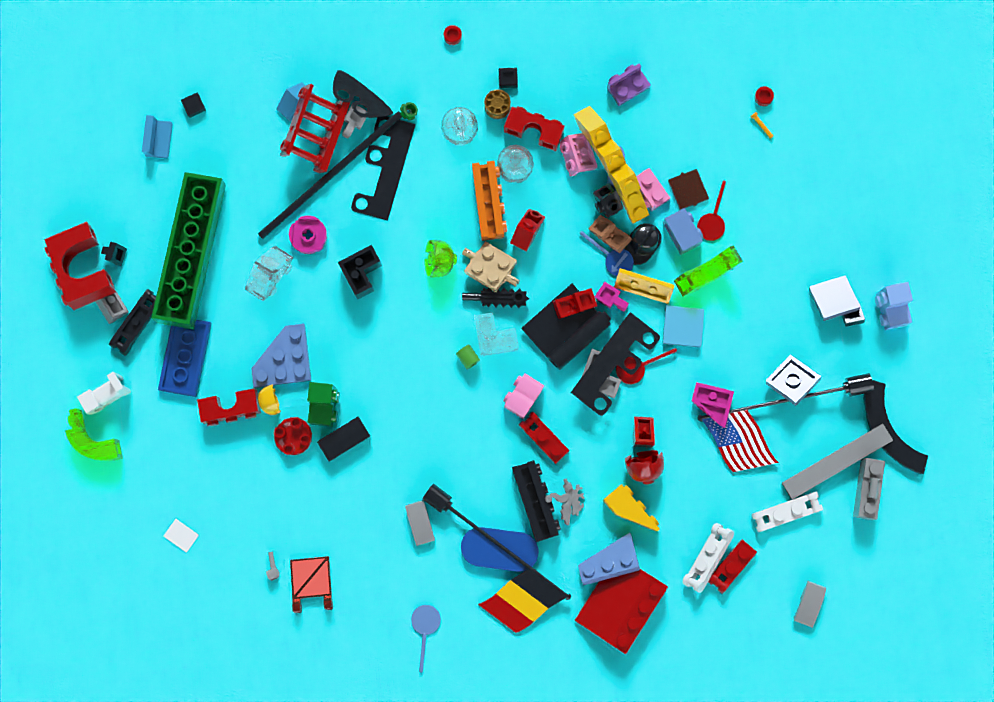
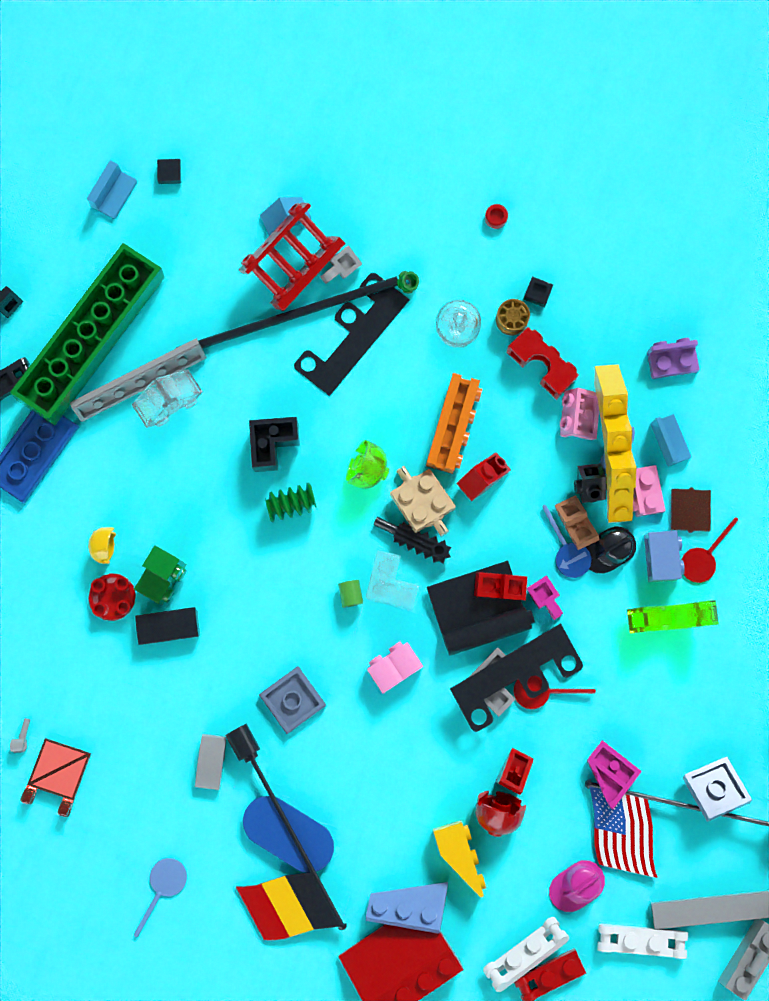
camera: 20 degrees right, 0 degrees up
(212, 411) = (33, 528): red arch -> none
(240, 269) = (137, 380): none -> light grey tile
(284, 359) = (142, 504): medium blue plate -> none
(300, 227) = (227, 361): dark pink plate -> none
(375, 106) = (371, 255): black piece -> none
(394, 309) = (290, 502): none -> green piece
(459, 452) = (292, 700): none -> sand blue tile
(515, 163) = (503, 394): clear cylinder -> none
(533, 497) = (353, 797): black brick -> none
(544, 438) = (397, 727): red plate -> none
(569, 500) = (394, 812): light grey piece -> none
(644, 286) = (590, 600): yellow plate -> none
(651, 144) = (670, 440): none -> dark azure panel
(683, 326) = (615, 667): medium azure tile -> none
(723, 494) = (577, 886): none -> dark pink piece

